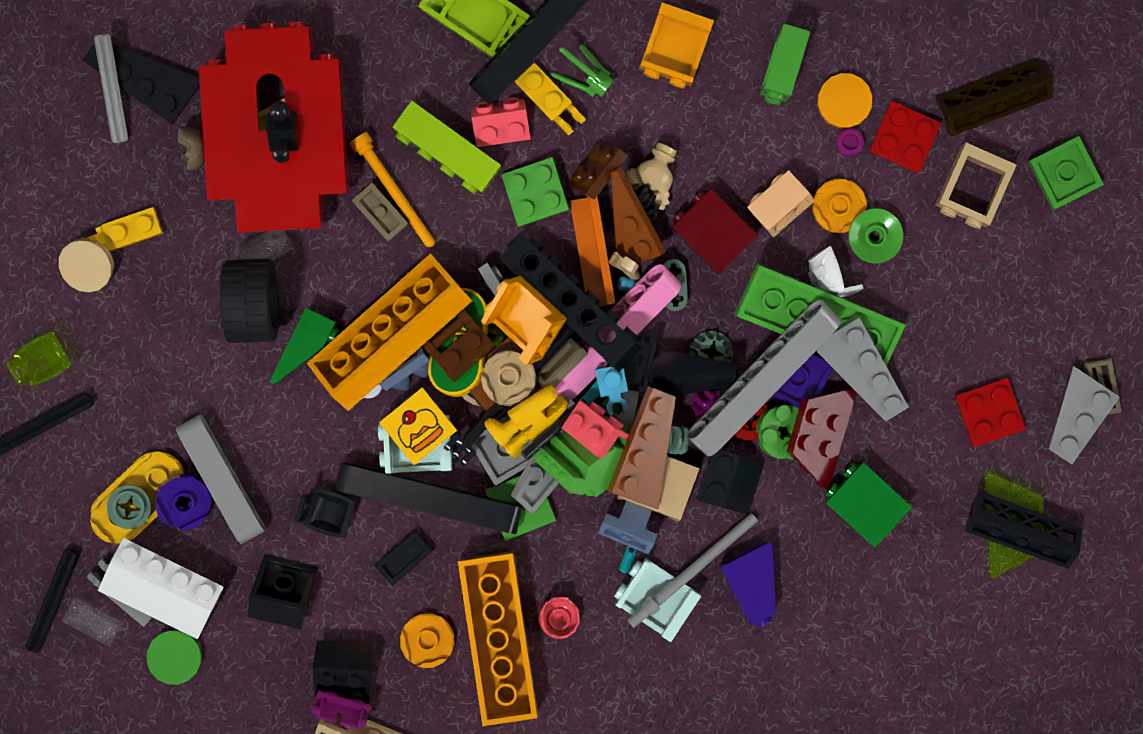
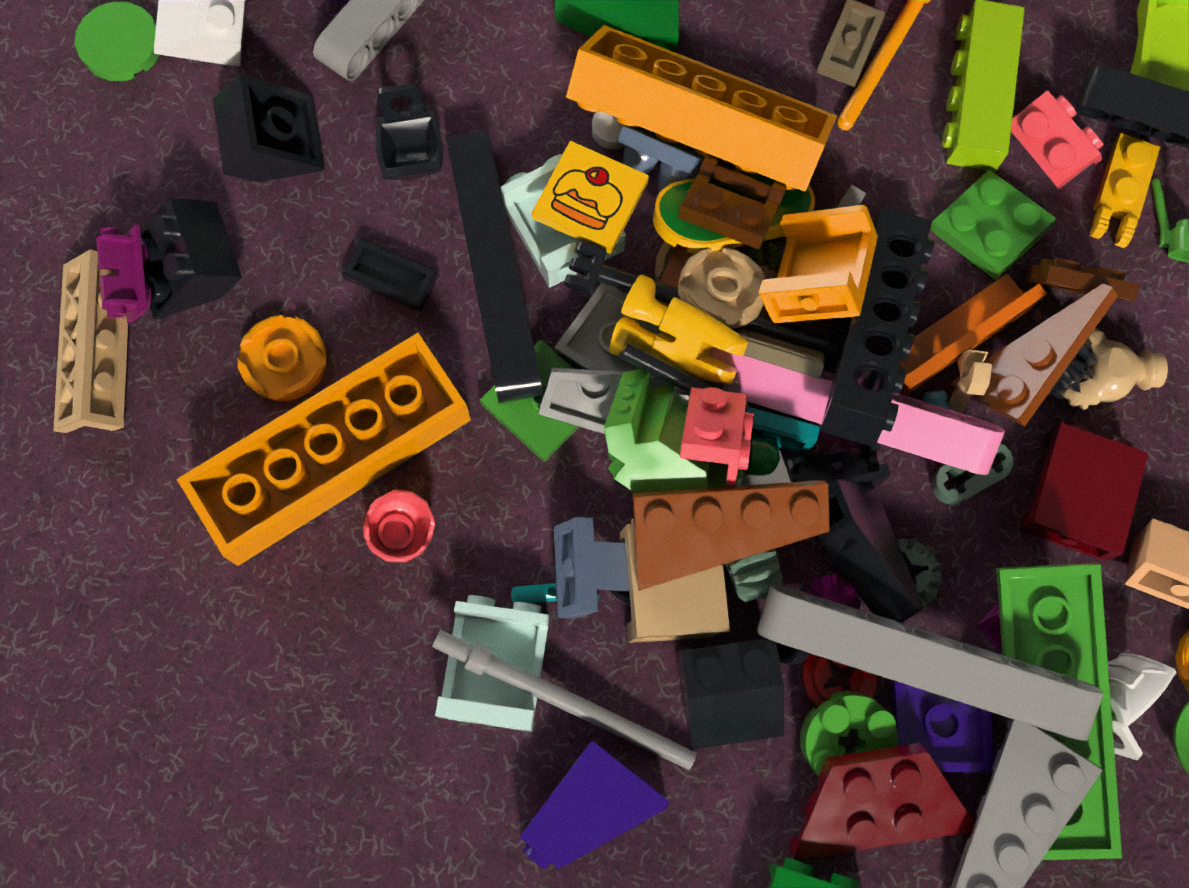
camera: 60 degrees right, 15 degrees down
(612, 384) = (789, 437): medium azure plate -> none

